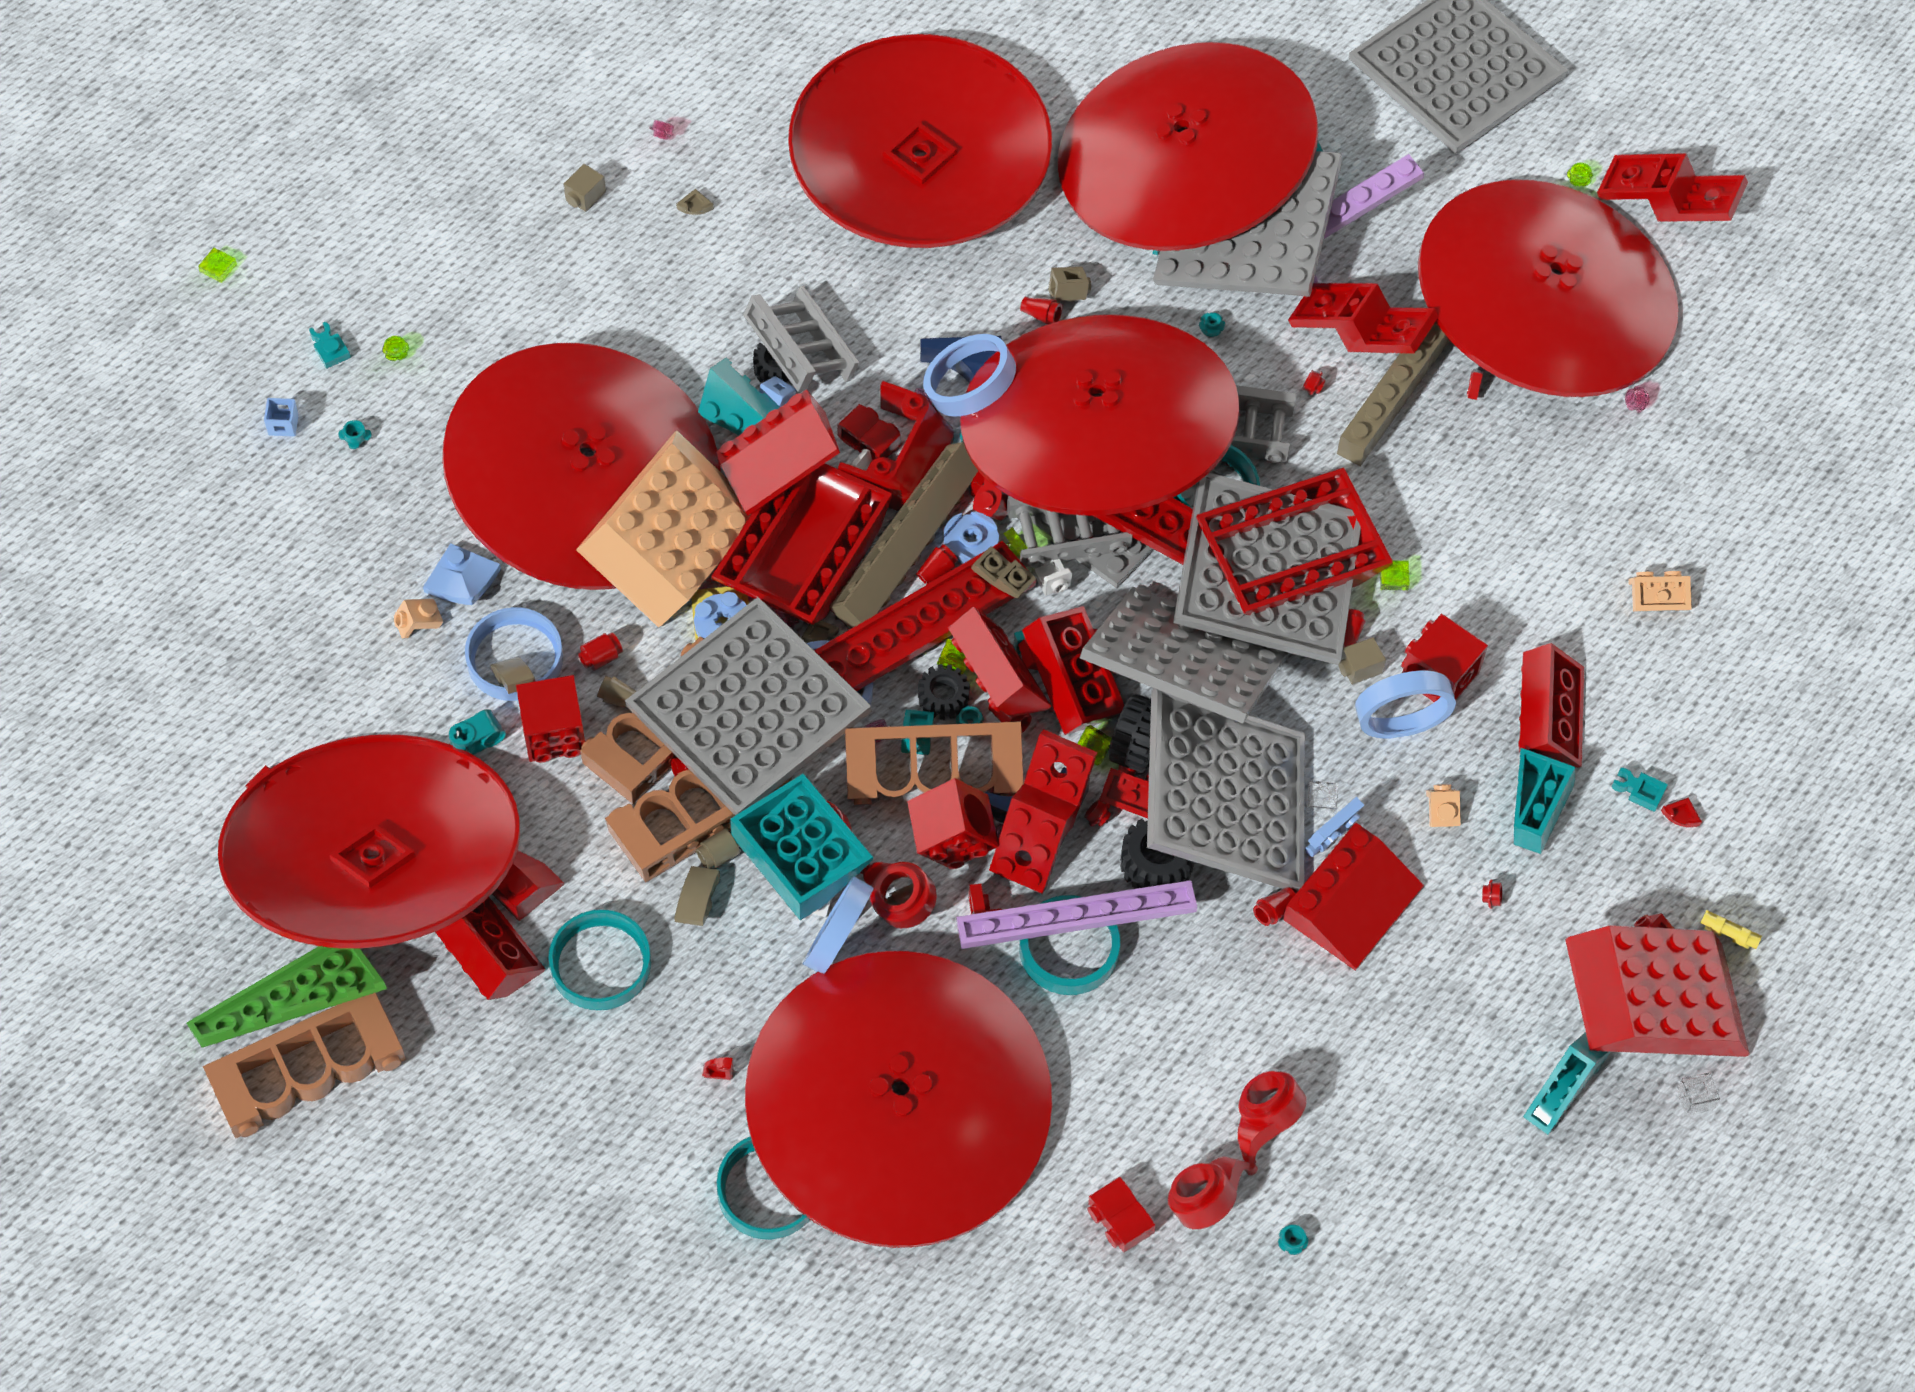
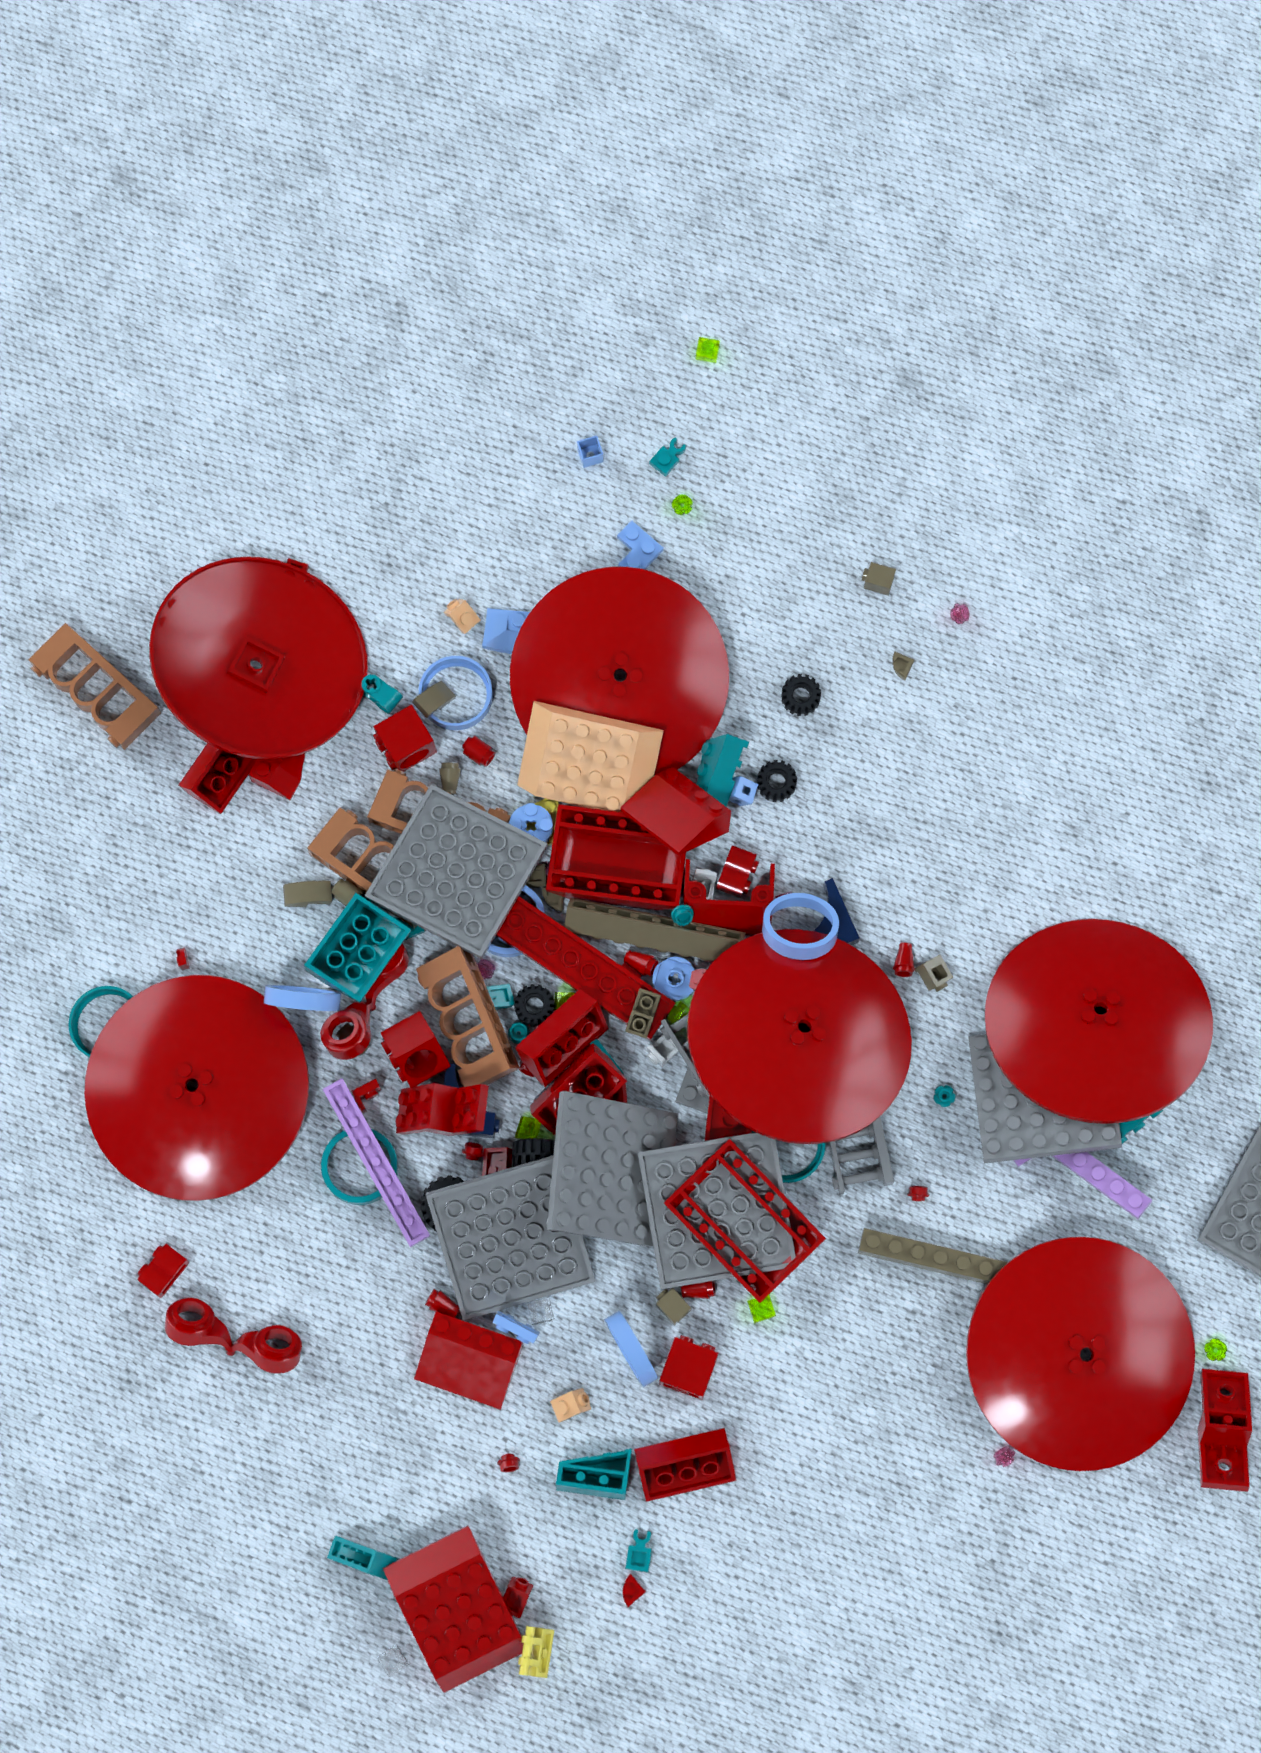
camera: 75 degrees right, 15 degrees up
(297, 989) = (129, 647): bright green wing -> none
(351, 428) = (595, 502): teal plate -> none
(427, 405) = (643, 547): none -> light blue plate
(594, 919) = (222, 818): teal piece -> none
(685, 293) = (801, 682): none -> black tyre
(789, 354) = (778, 785): light grey fence -> none
(903, 492) = (682, 915): none -> teal plate
(927, 94) = (1030, 763): red dish -> none
(1296, 1232) = (179, 1398): teal plate -> none
(1363, 318) = (986, 1213): red bracket -> none
(1474, 384) = (961, 1321): red tile -> none
(1661, 593) = (824, 1522): light nougat bracket -> none

